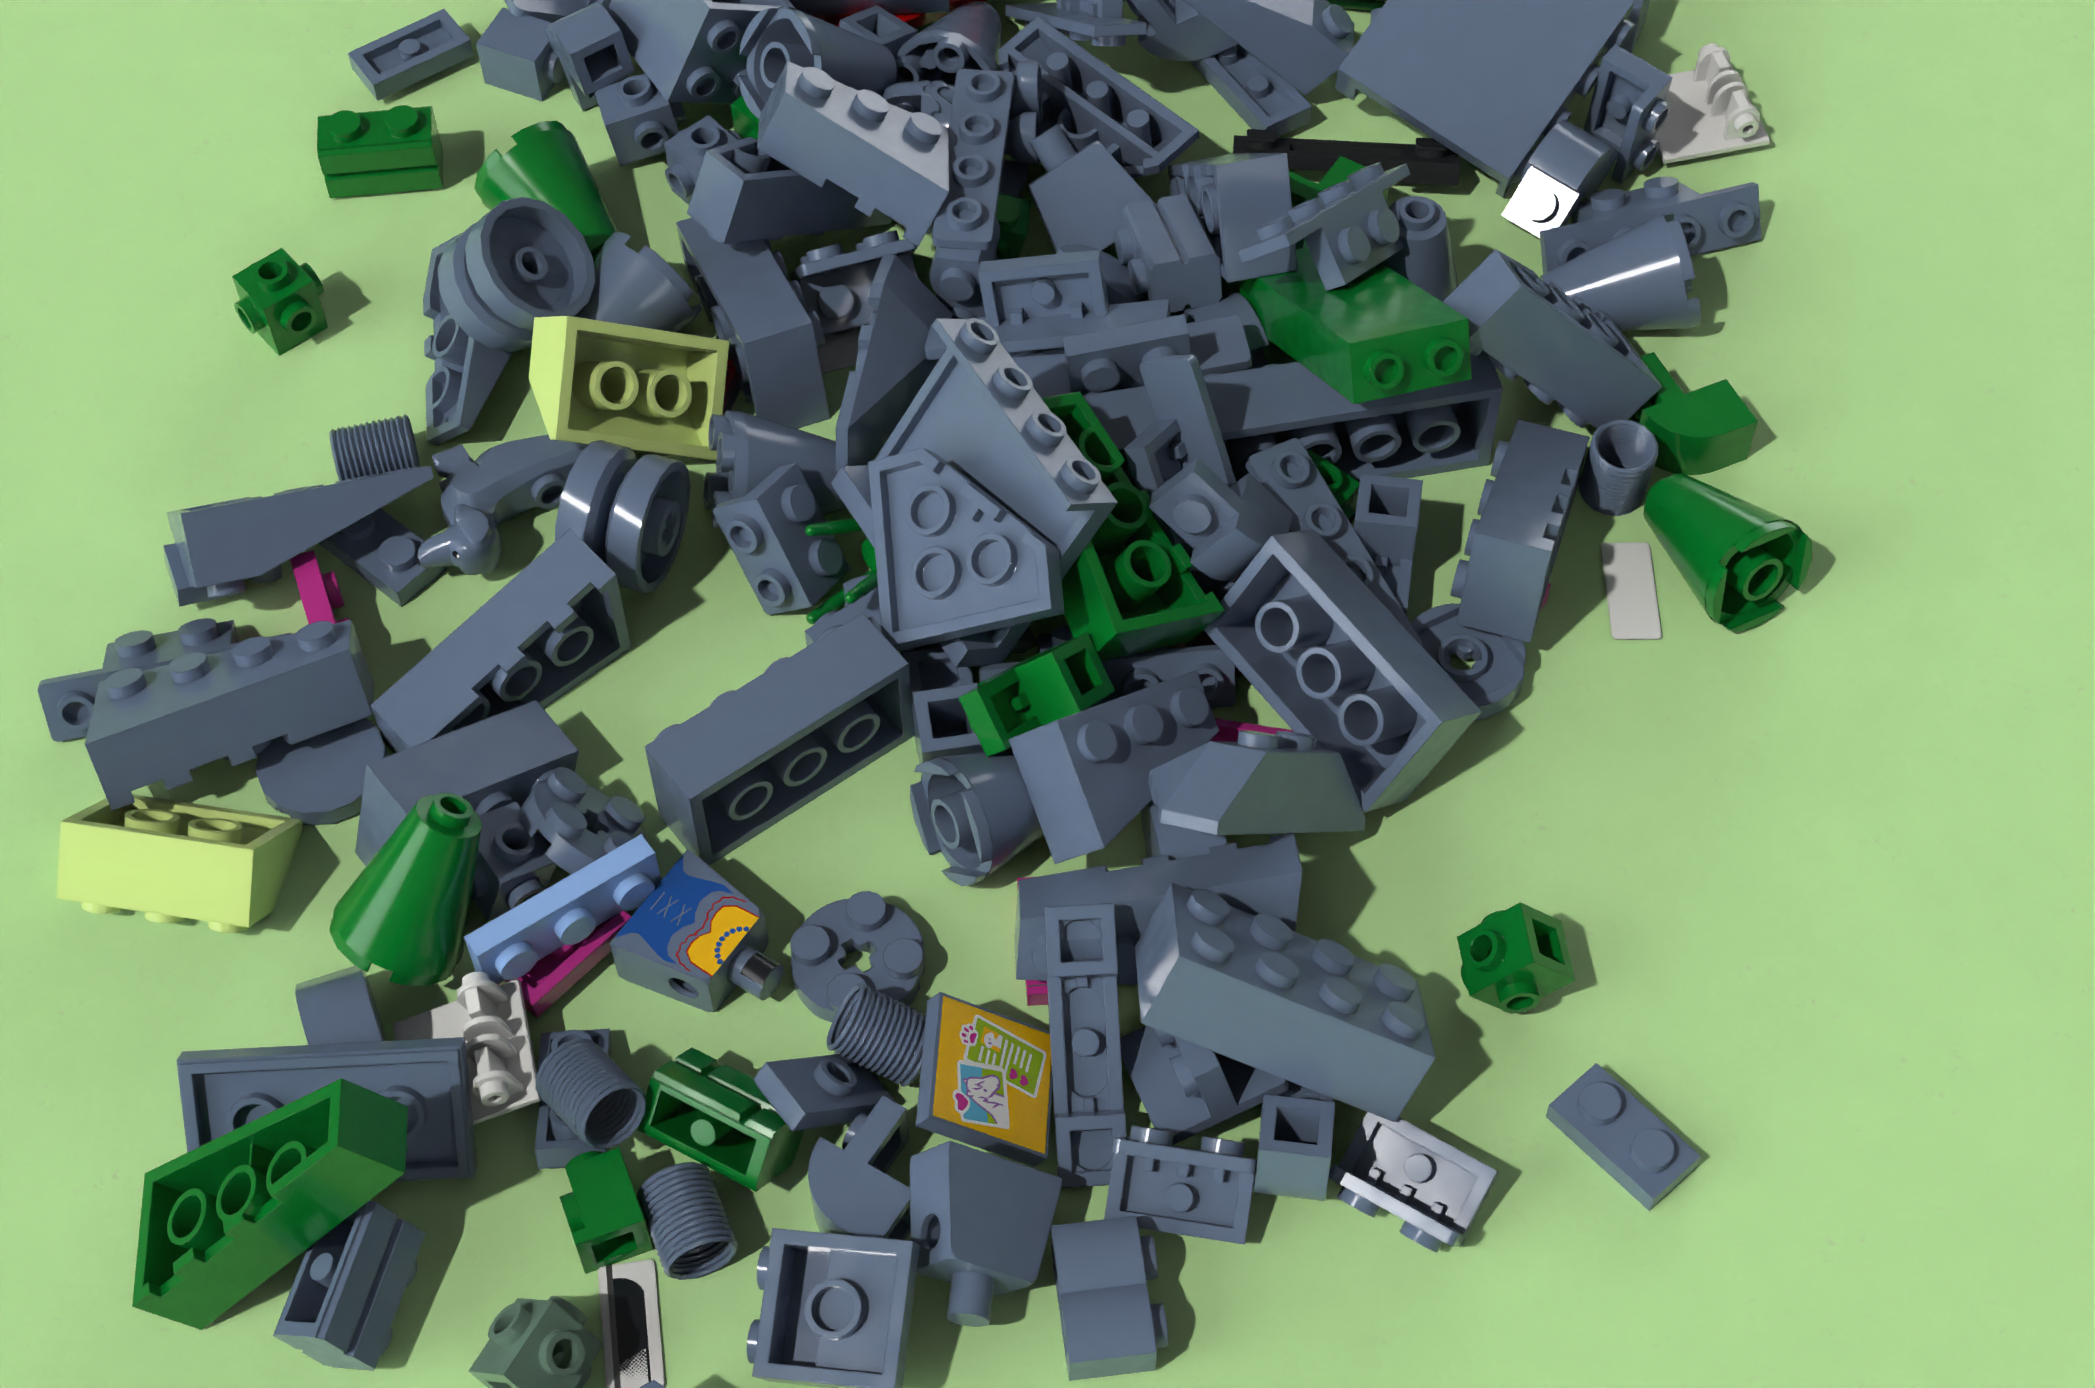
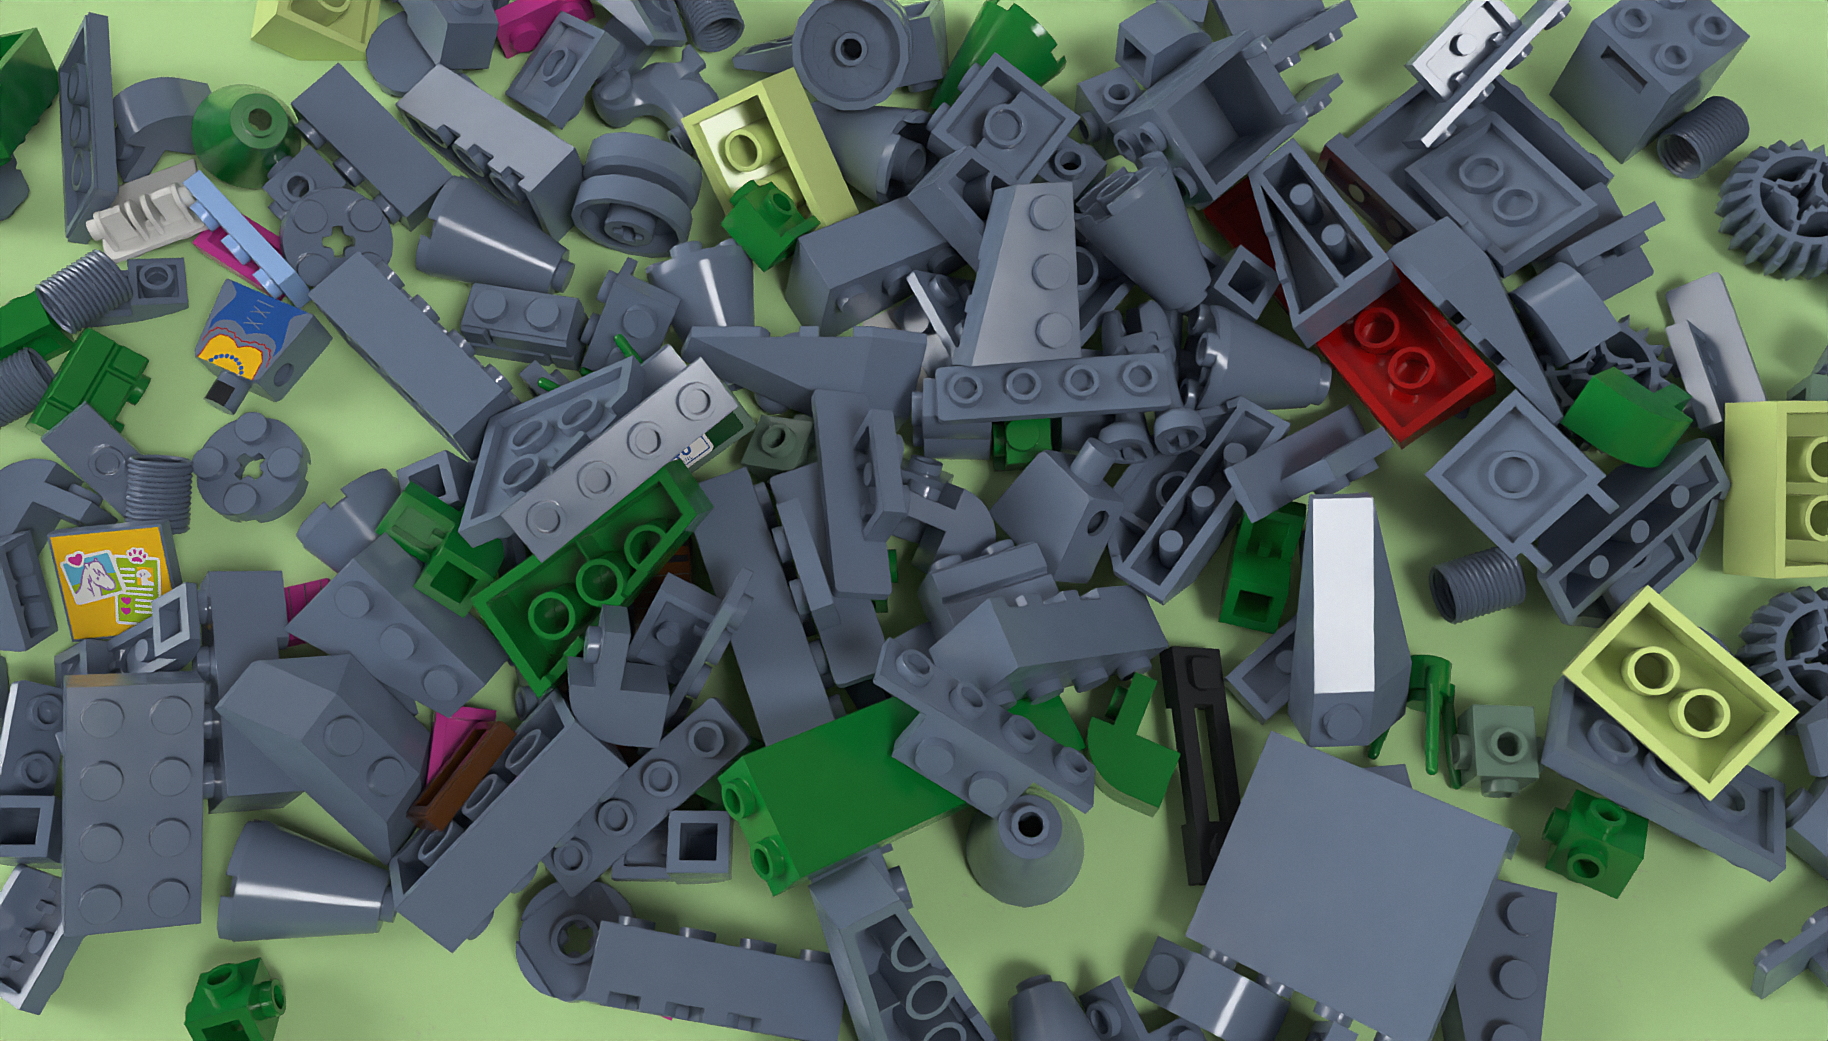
camera: 85 degrees right, 15 degrees up
(420, 579) = (563, 69): none -> sand blue plate
(629, 680) = (489, 243): none -> sand blue cone
(641, 177) = (1003, 119): none -> sand blue plate
(708, 382) = (766, 223): none -> green brick
(755, 631) = (525, 326): none -> sand blue brick
(1178, 82) = (1260, 568): none -> green brick
(1271, 703) = (460, 775): none -> reddish brown tile
(1387, 894) = (299, 889): none -> sand blue cone

